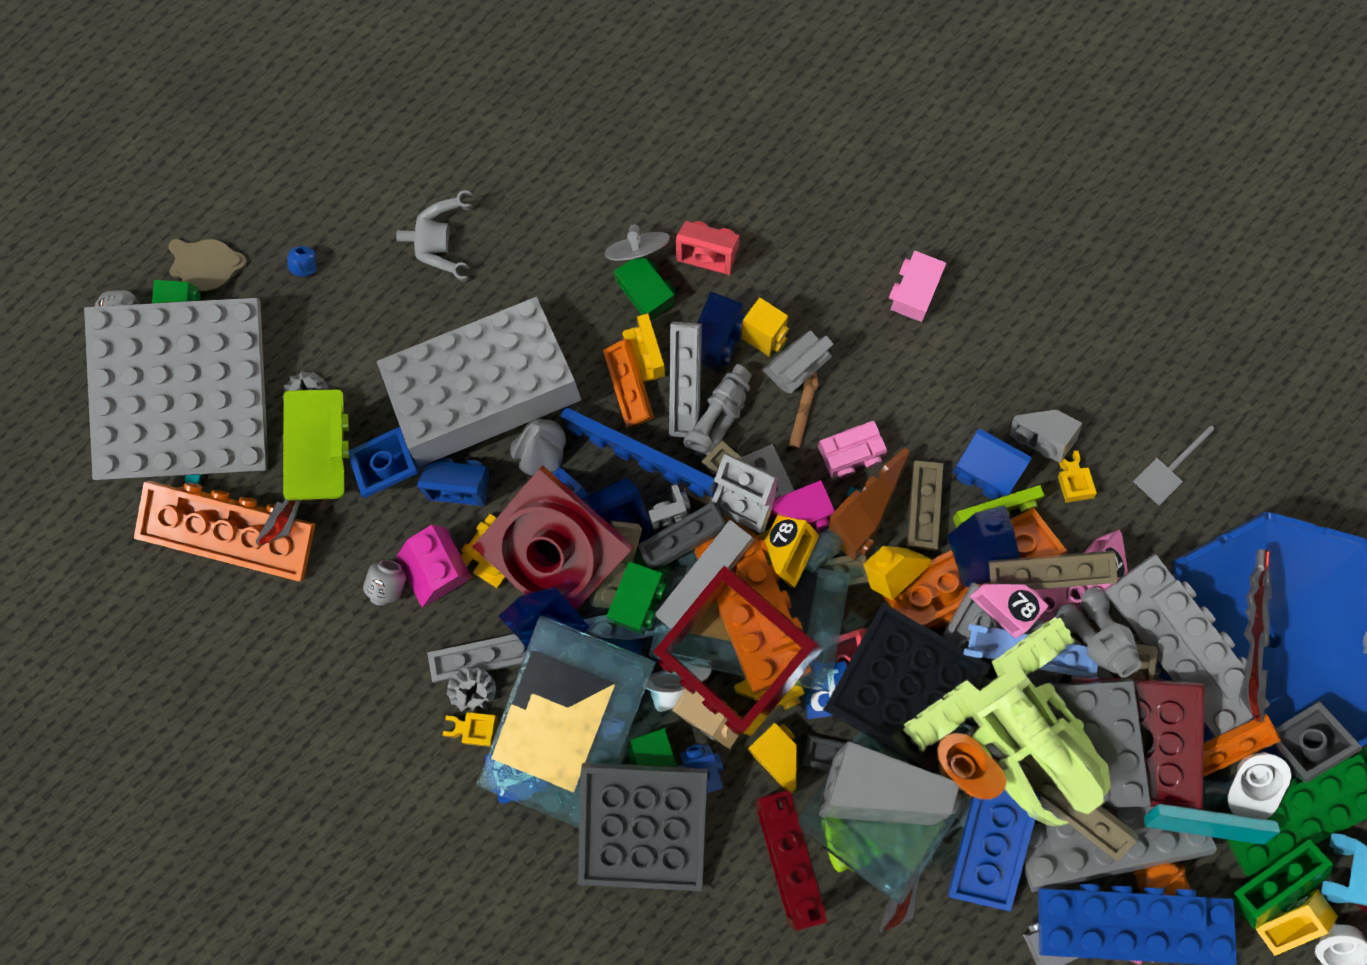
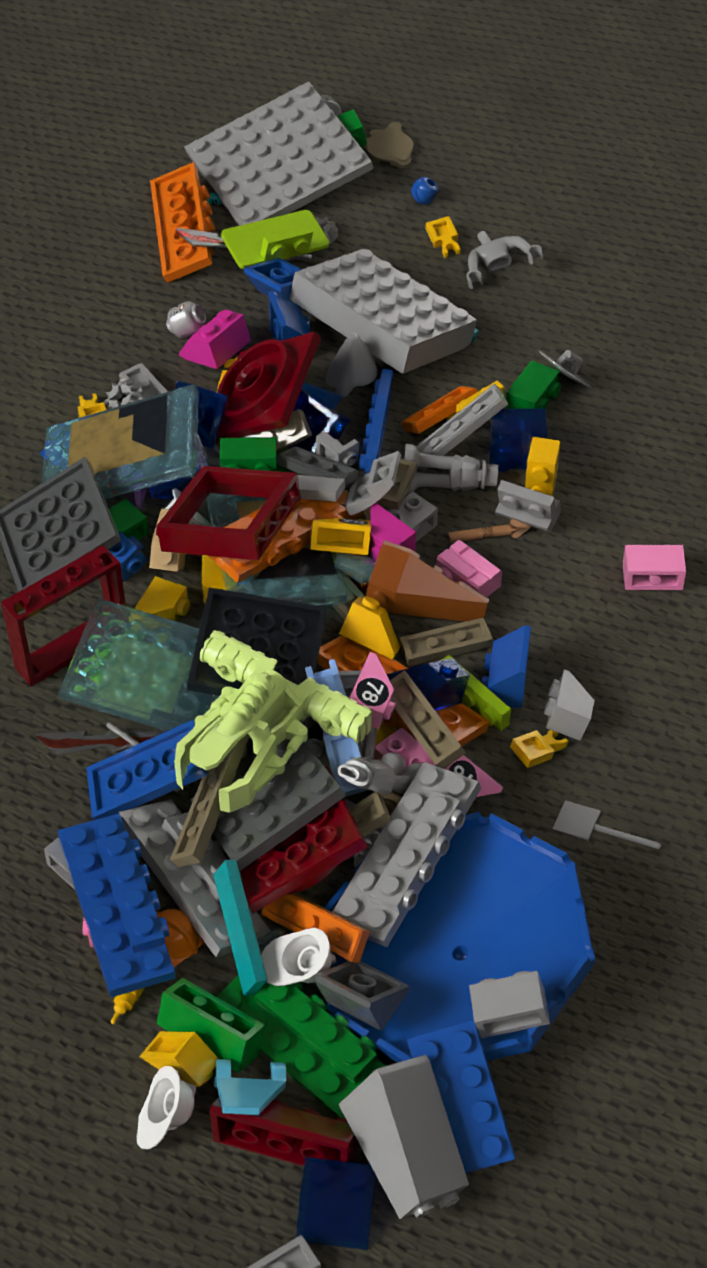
camera: 65 degrees right, 25 degrees down
(376, 273) = (443, 234): none -> yellow plate
(707, 247) = (595, 413): coral slope -> none
(885, 790) = (148, 633): light grey slope -> none
(970, 766) = (199, 679): orange piece -> none
(1257, 633) = (398, 903): flat silver sword -> none

